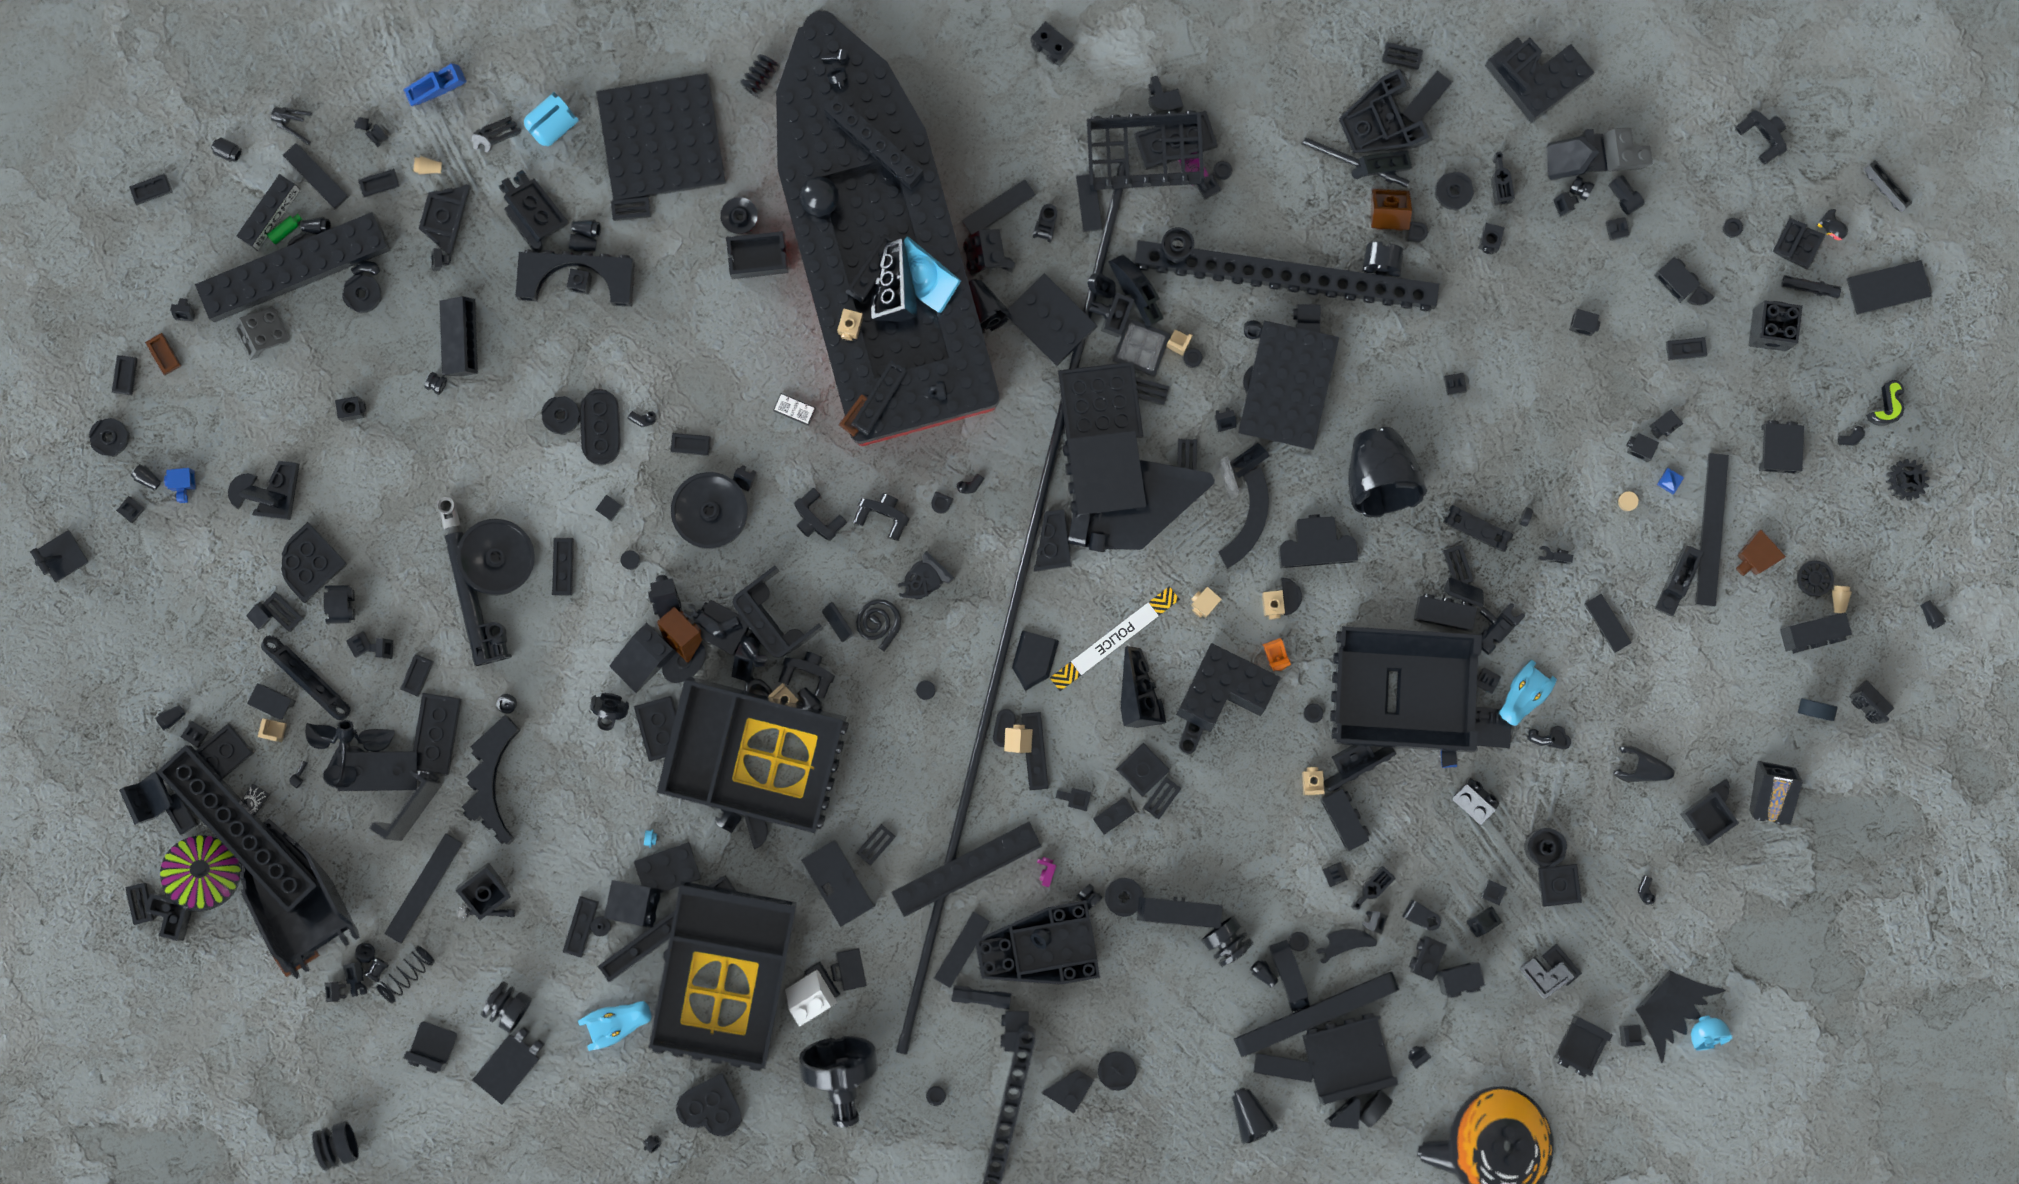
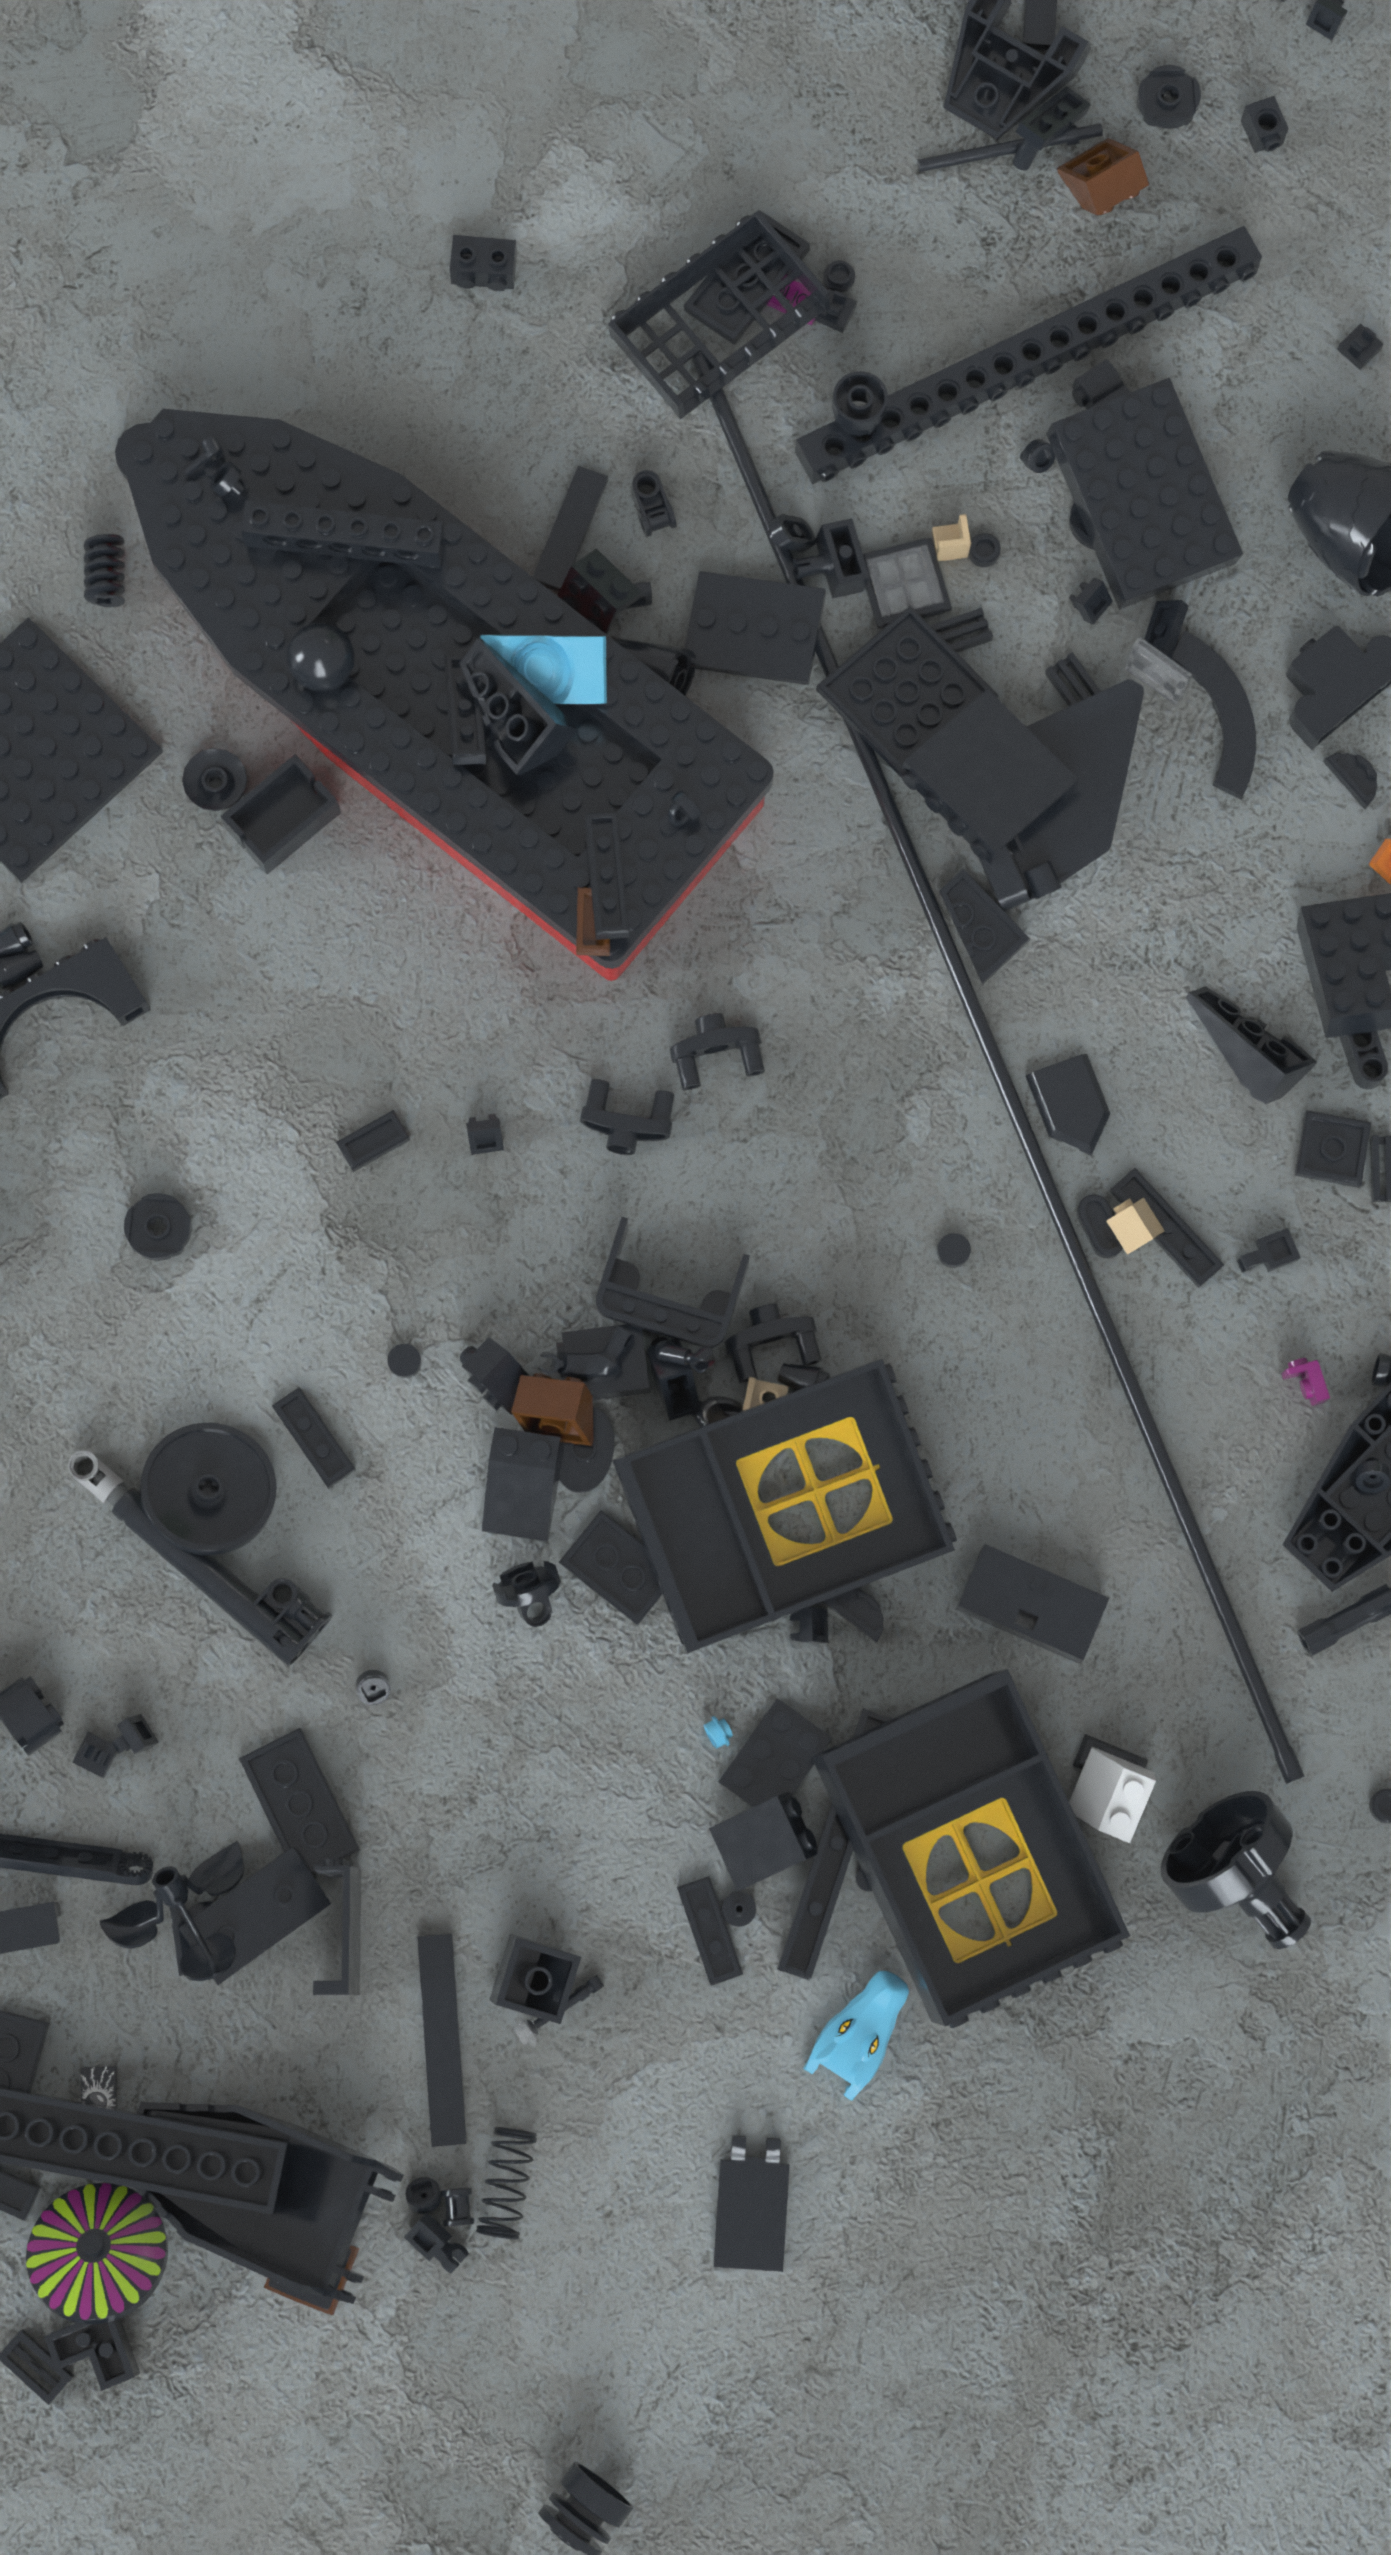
camera: 40 degrees left, 5 degrees down
(272, 730) = (55, 1968): tan panel -> none
(295, 779) = (140, 2018): black hand -> none
(332, 991) = (417, 2287): black tile -> none
(416, 675) = (211, 1740): black tile -> none
(431, 1047) = (620, 2262): black bracket -> none
(483, 804) = (442, 1854): black arch -> none
(507, 1007) = (689, 2121): black wheel -> none
(579, 281) = (51, 1022): black brick -> none
(600, 427) = (226, 1205): black tile -> none
(608, 508) = (320, 1309): black tile -> none
(630, 209) = (58, 886): black tile -> none
(644, 420) = (282, 1153): black arm -> none
(652, 1143) = (1040, 2168): black plate -> none
(709, 510) = (469, 1210): black dish -> none
(710, 1106) = (1083, 2053): black plate -> none
(794, 409) = (486, 992): white tile -> none
(837, 622) = (762, 1241): black slope -> none
(850, 324) = (492, 803): tan brick -> none
(850, 969) = (1134, 1715): black piece -> none
(874, 619) = (811, 1202): black piece -> none
(886, 832) = (1040, 1542): black tile -> none
(927, 578) = (843, 1091): black piece -> none
(941, 503) = (784, 979): black tile -> none
(961, 950) = (1271, 1574): black tile -> none
(966, 869) = (1195, 1456): black plate -> none
(970, 487) = (810, 928): black arm -> none
(1088, 204) = (690, 442): black tile -> none
(1114, 638) = (1159, 999): sticker -> none
(1114, 816) = (1341, 1239): black plate -> none
(1136, 283) = (833, 499): black slope -> none
(1163, 102) = (687, 237): black brick -> none
(1204, 602) = (1248, 861): tan brick -> none
(1273, 604) = (1341, 800): tan brick -> none
(1383, 259) = (1145, 242): black brick -> none
(1417, 232) = (1161, 184): black tile -> none
(1502, 190) = (1222, 43): black piece -> none

